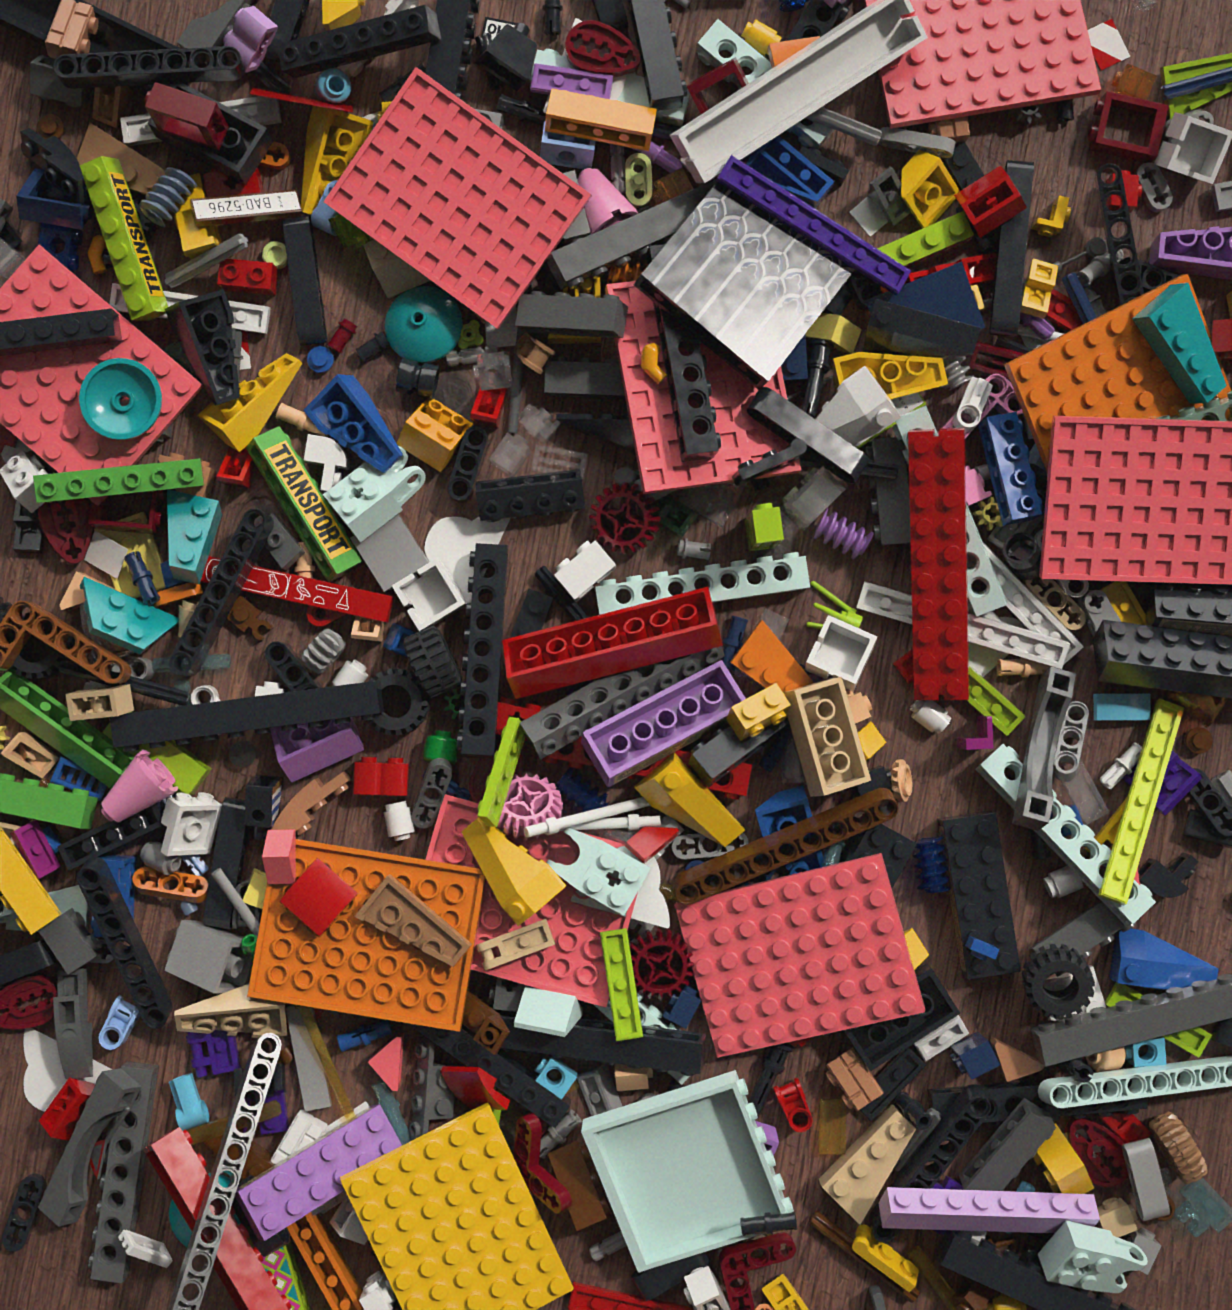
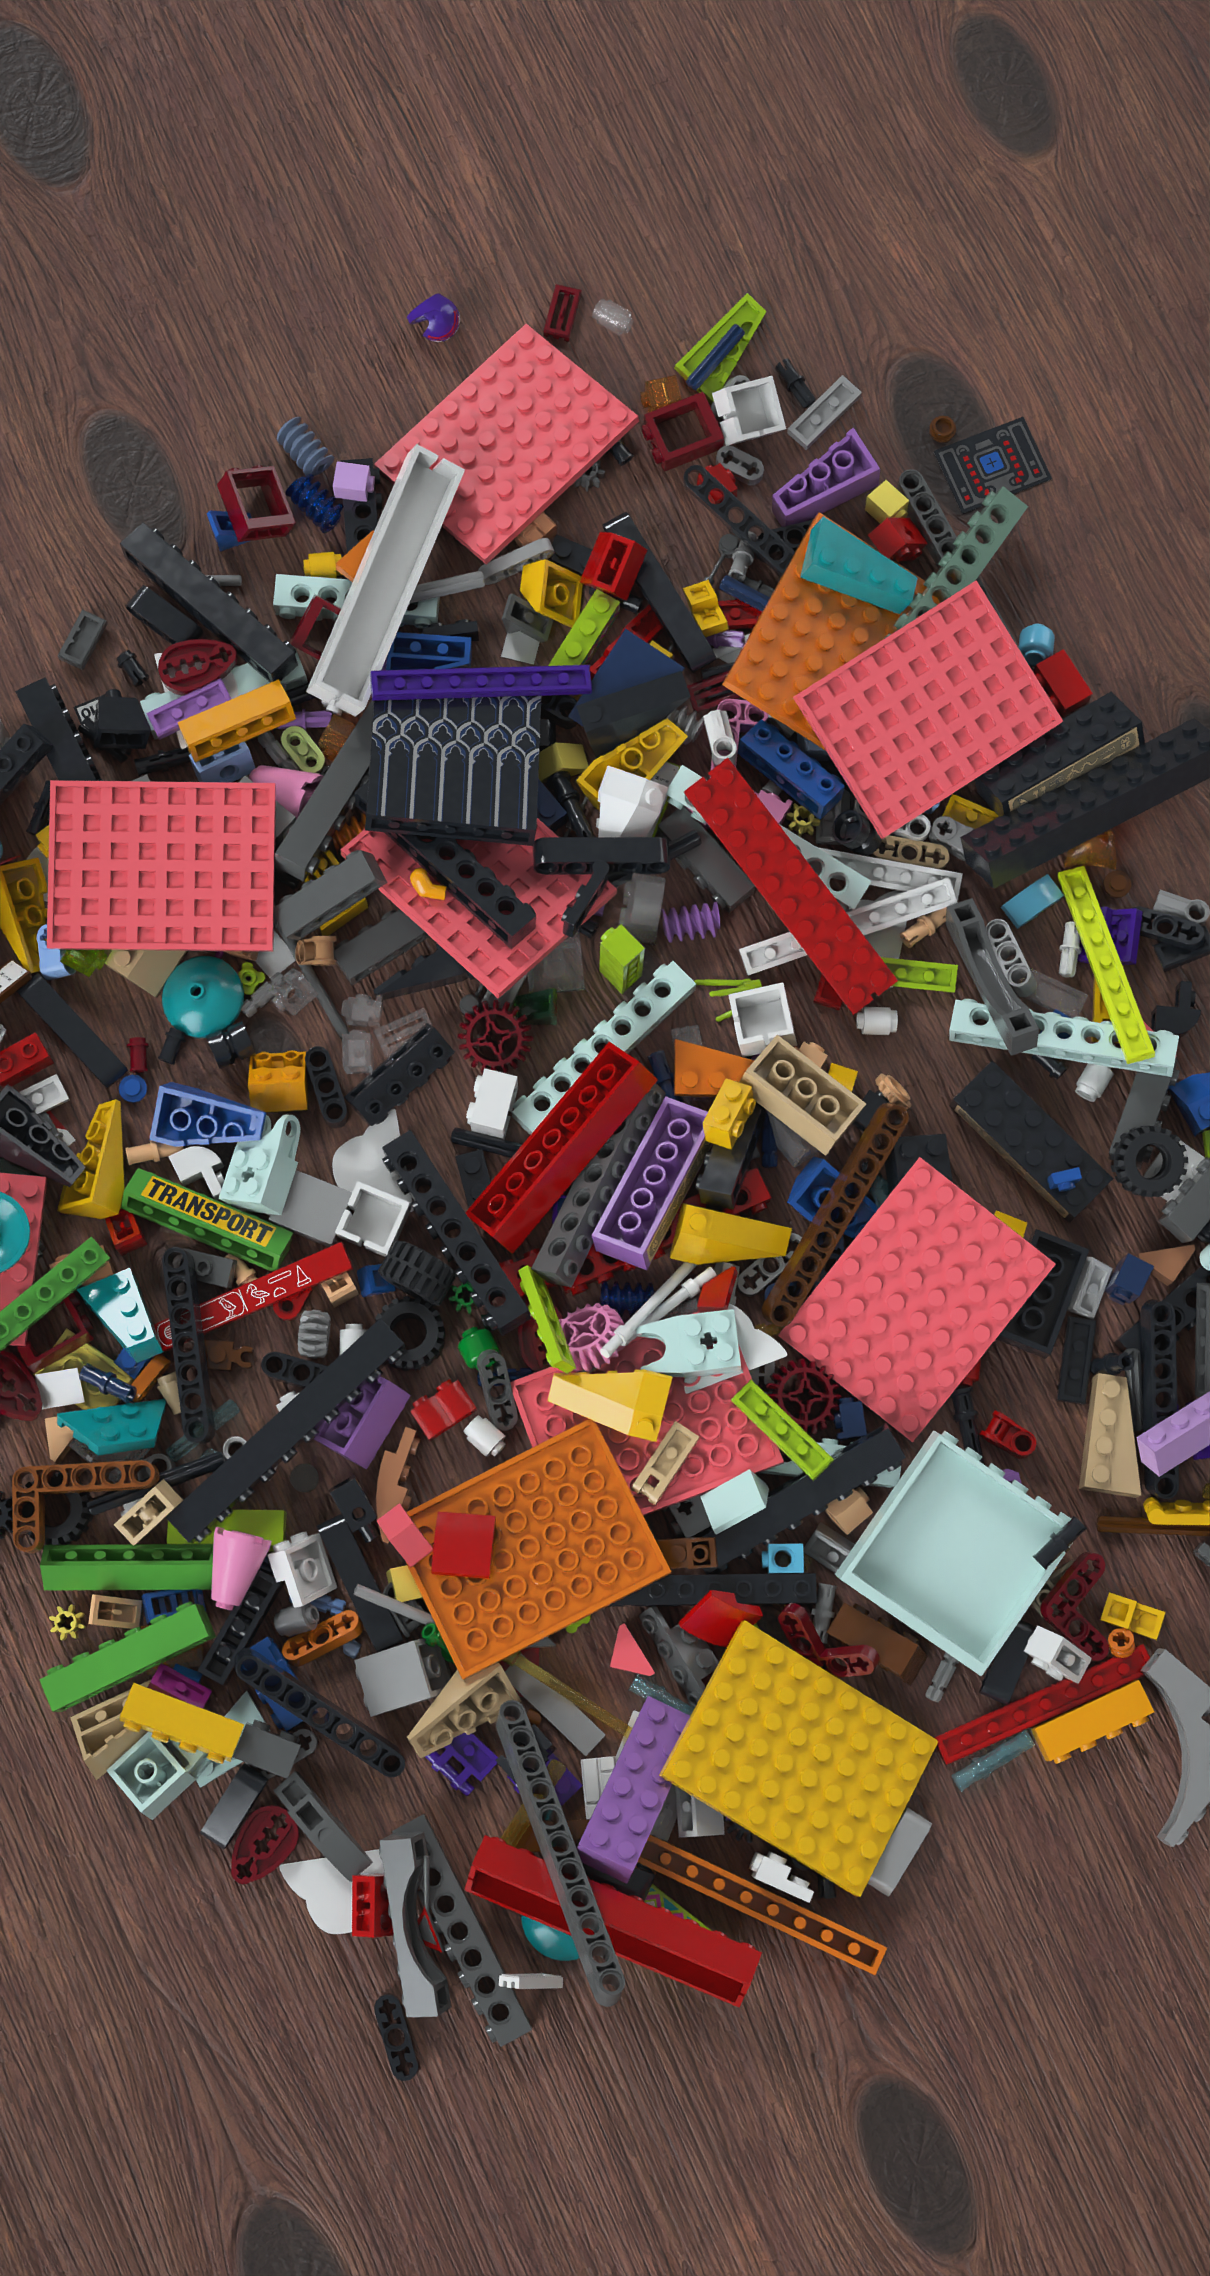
camera: 40 degrees left, 10 degrees down
(120, 1018) = (363, 1794): light blue piece -> none
(190, 1109) = (473, 1822): medium azure piece -> none
(275, 253) = (30, 1024): yellowish green tile -> none
(364, 1035) = (590, 1648): blue pin -> none
(412, 921) = (555, 1505): medium nougat wing -> none
(488, 407) = (310, 1027): red slope -> none
(692, 549) = (573, 1024): light grey pin -> none
(832, 1126) = (1056, 1433): clear yellow tile -> none
(854, 1079) = (1043, 1375): nougat brick -> none
(930, 865) = (971, 1146): clear blue piece -> none
(984, 734) = (935, 1006): magenta panel -> none
(1059, 215) = (679, 541): yellow bracket -> none
(1107, 44) = (617, 378): white sticker -> none

